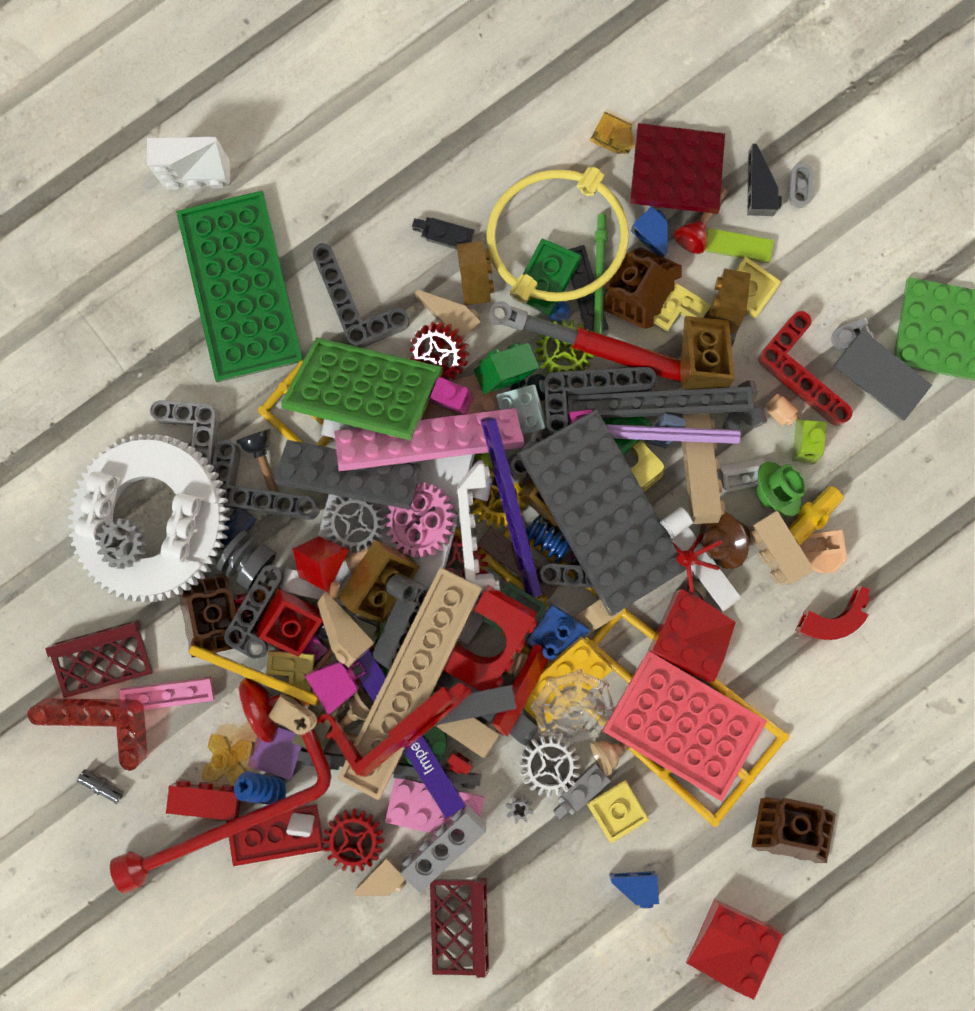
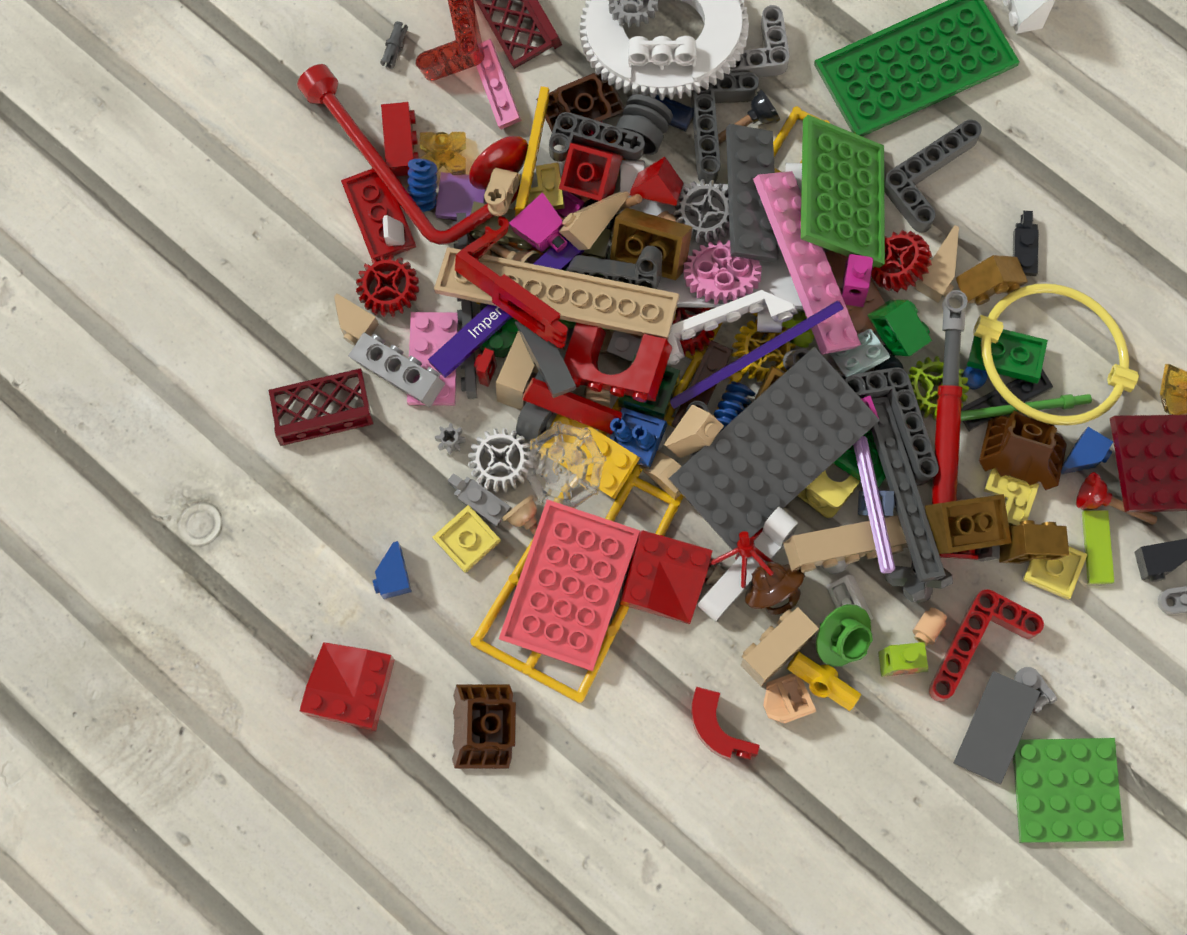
camera: 80 degrees right, 10 degrees down
(573, 582) = (693, 432): none -> tan slope

